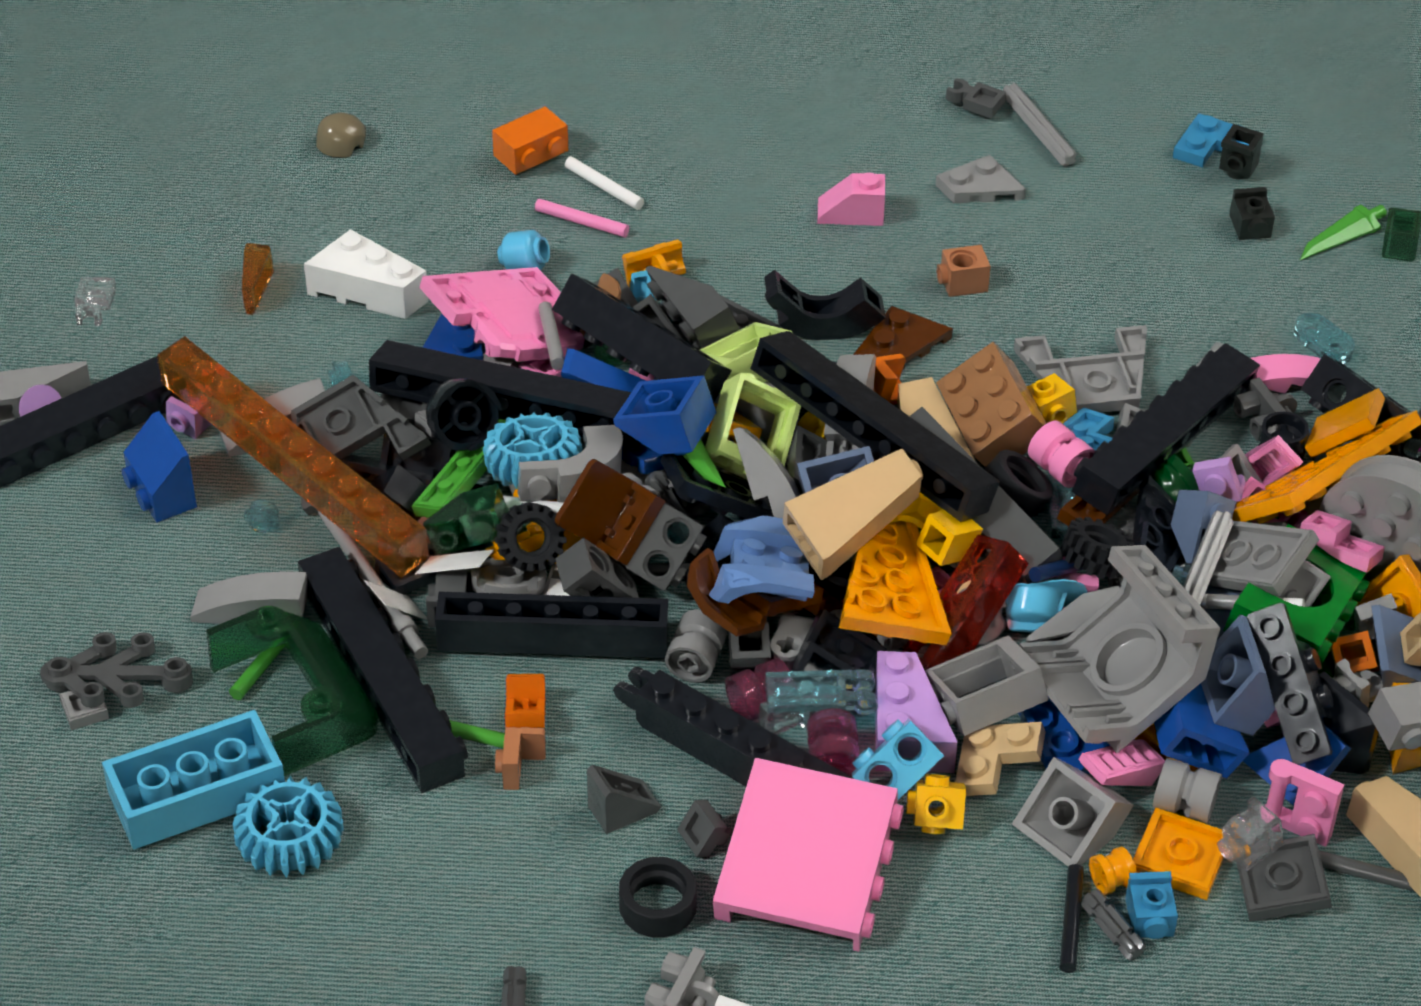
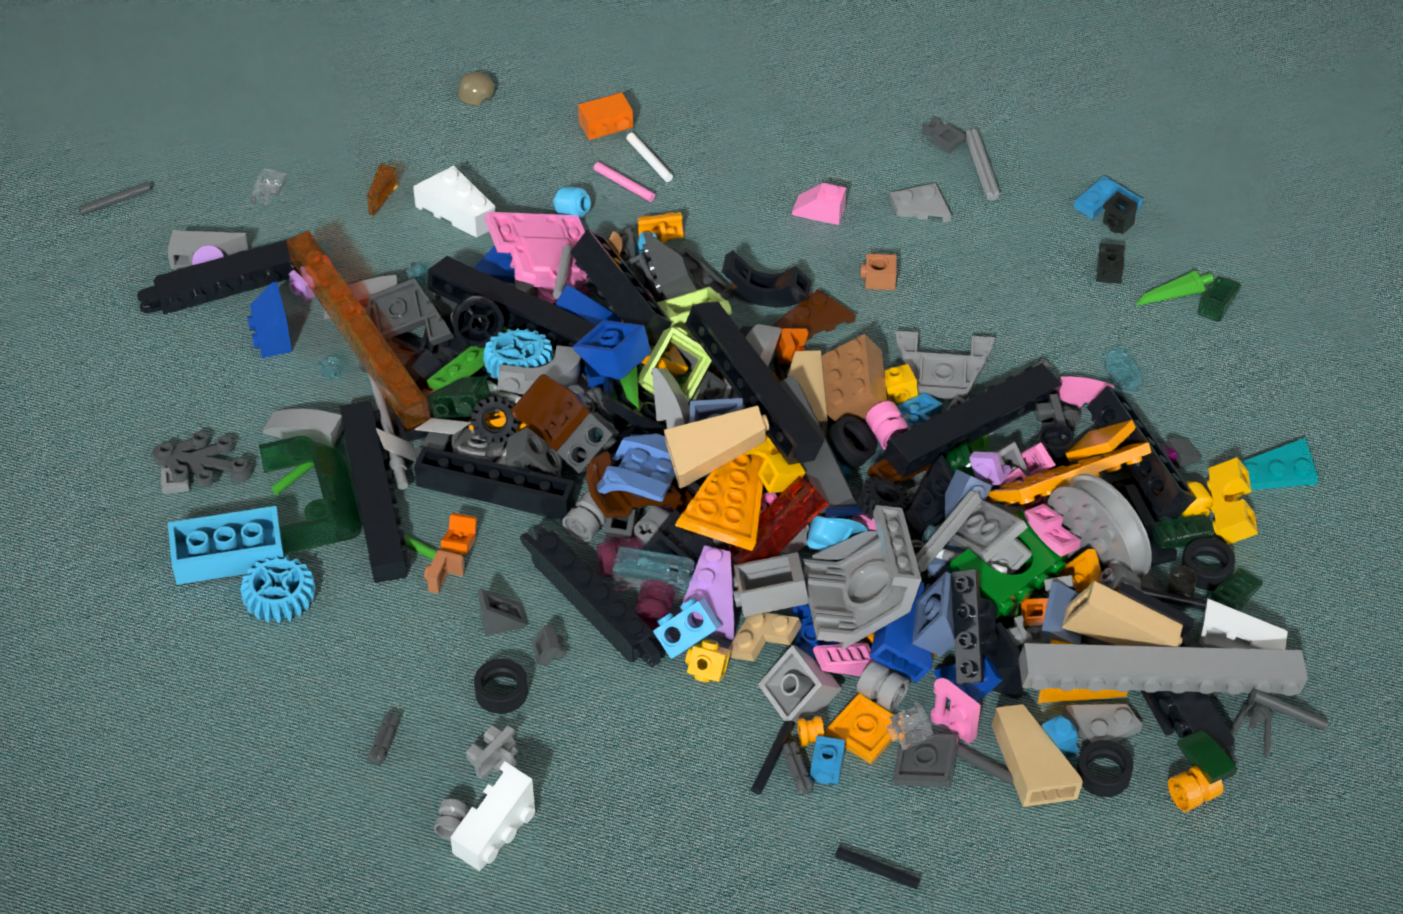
camera: 15 degrees right, 5 degrees up
(808, 850) = (607, 676): bright pink panel -> none

